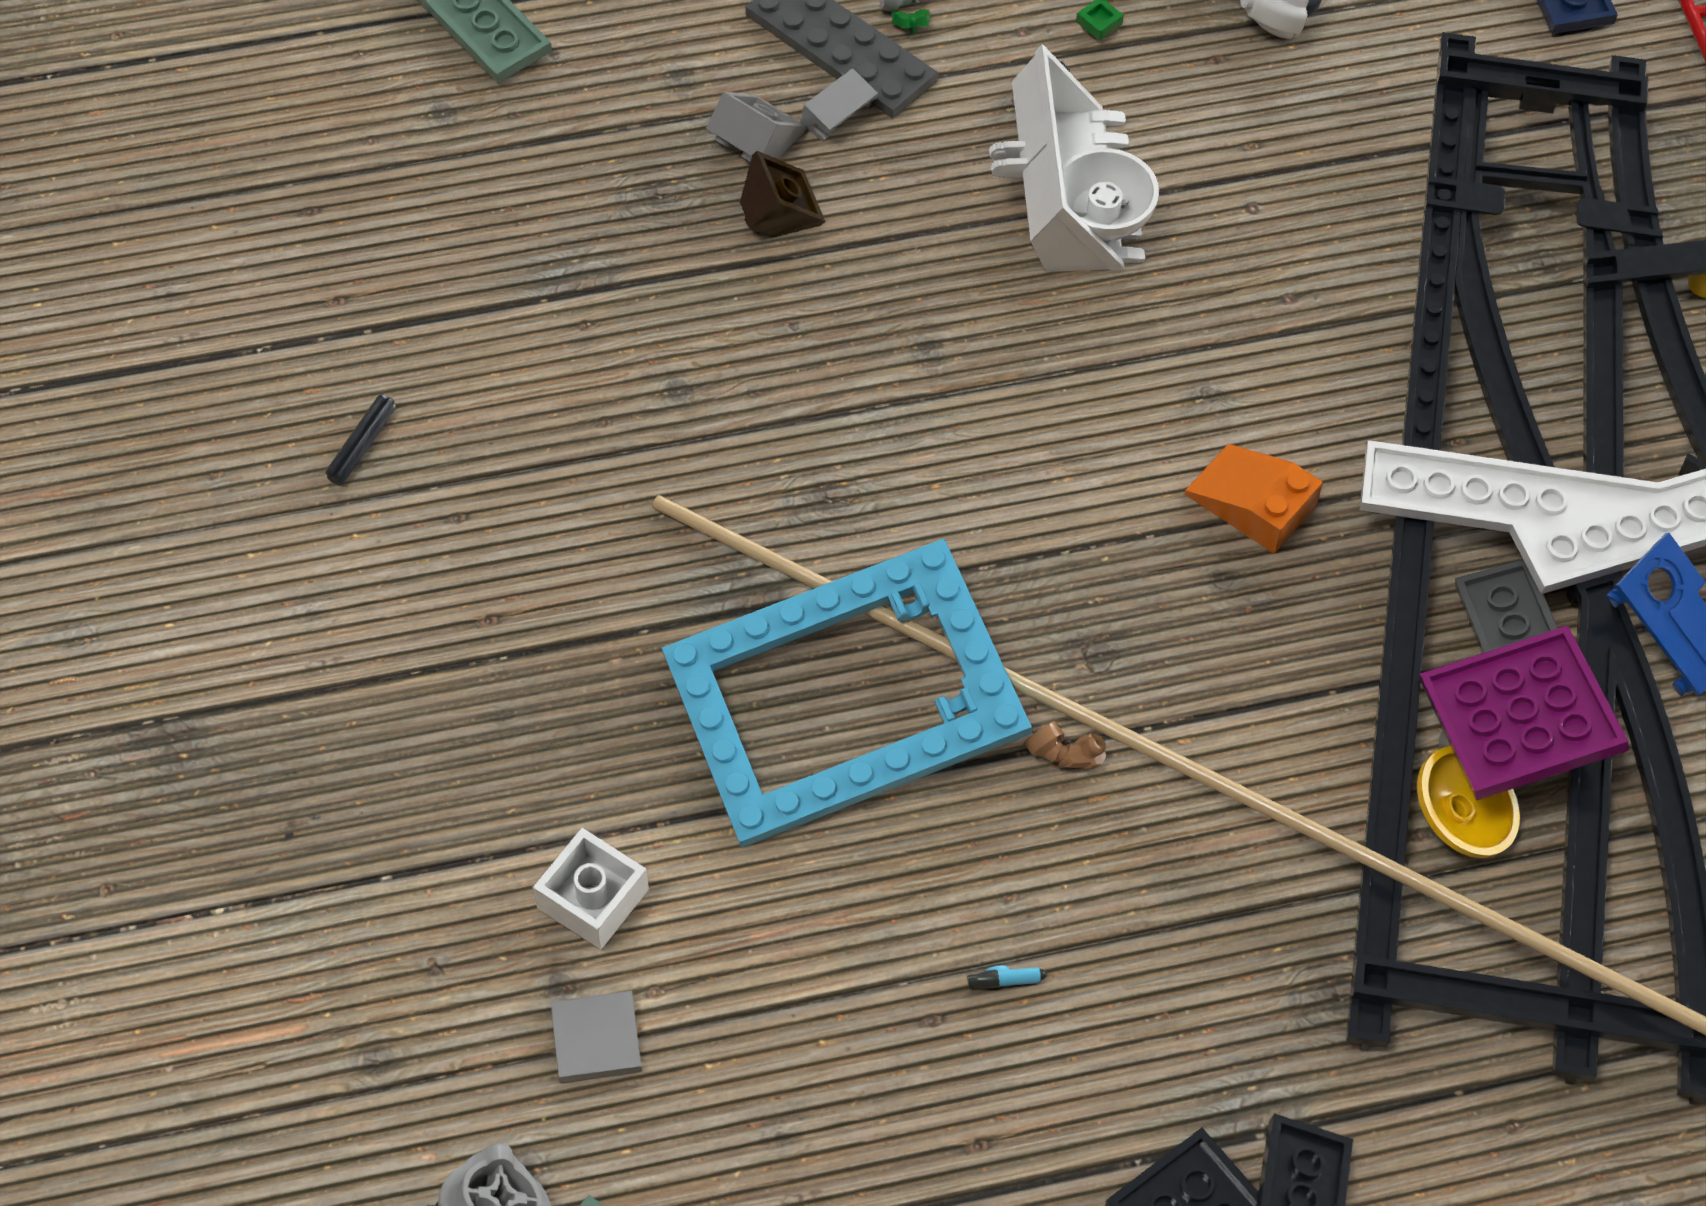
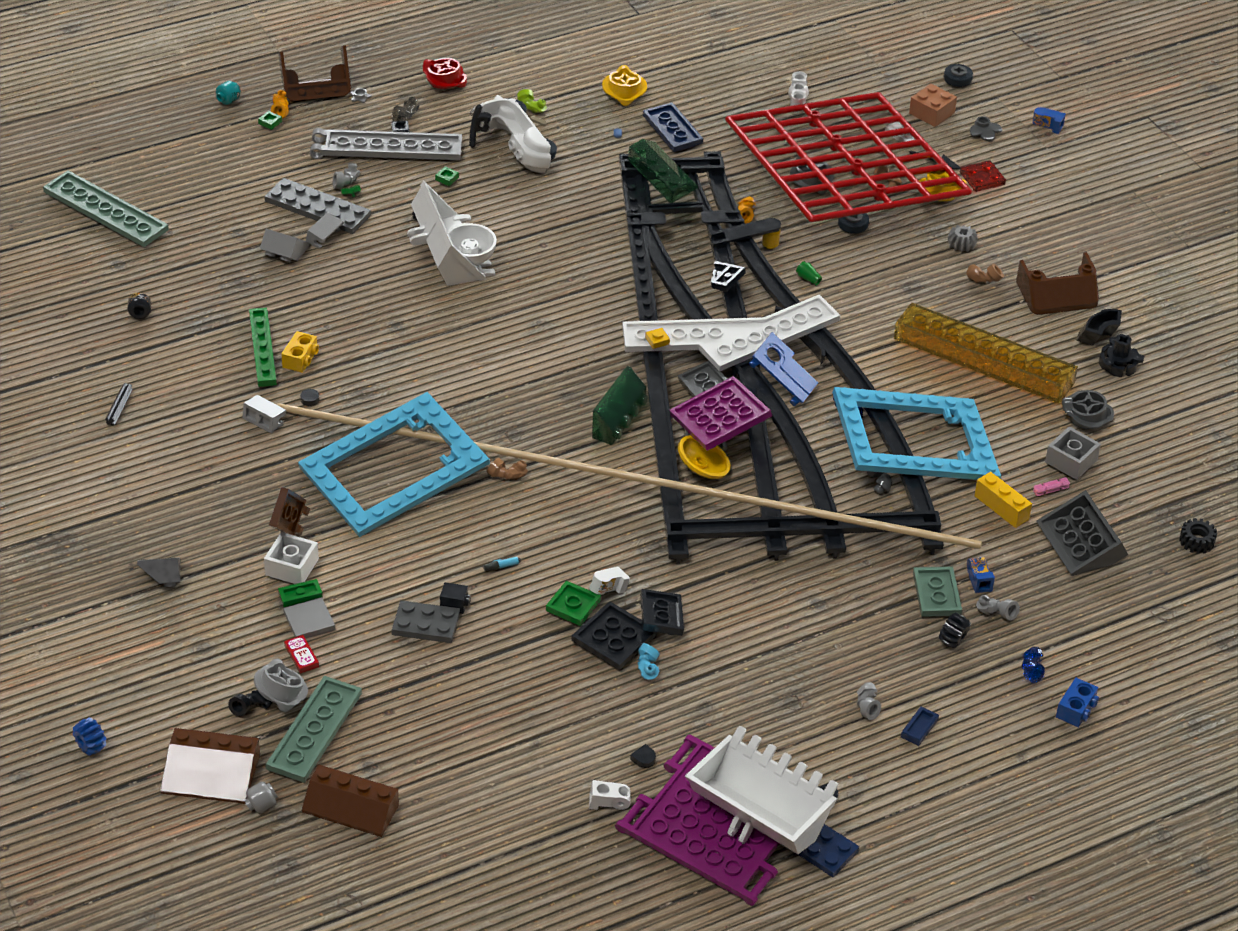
camera: 15 degrees left, 15 degrees down
(339, 857) = (162, 570): none -> flat silver slope
(452, 219) = (139, 305): none -> black head
(560, 1122) = (301, 654): none -> tile
(591, 970) = (300, 593): none -> green plate
(601, 796) = (288, 512): none -> reddish brown tile
(624, 516) = (263, 413): none -> light grey hinge
(659, 357) = (262, 347): none -> green plate
(722, 379) = (299, 352): none -> yellow brick
(722, 491) = (309, 397): none -> black tile
(778, 198) = (304, 273): dark brown slope -> none
(823, 1092) = (425, 621): none -> dark grey plate
(891, 1050) = (455, 596): none -> black brick
(1127, 1112) = (573, 603): none -> green plate
(1211, 1075) = (609, 580): none -> white leg
(1257, 494) = (575, 357): orange slope -> none
(1320, 642) = (618, 407): none -> clear green slope
(1430, 496) = (657, 338): none -> yellow plate
(1518, 91) = (660, 170): none -> clear green slope
(1599, 367) = (726, 275): none -> black wing
(1668, 204) = (746, 208): none -> light orange arm

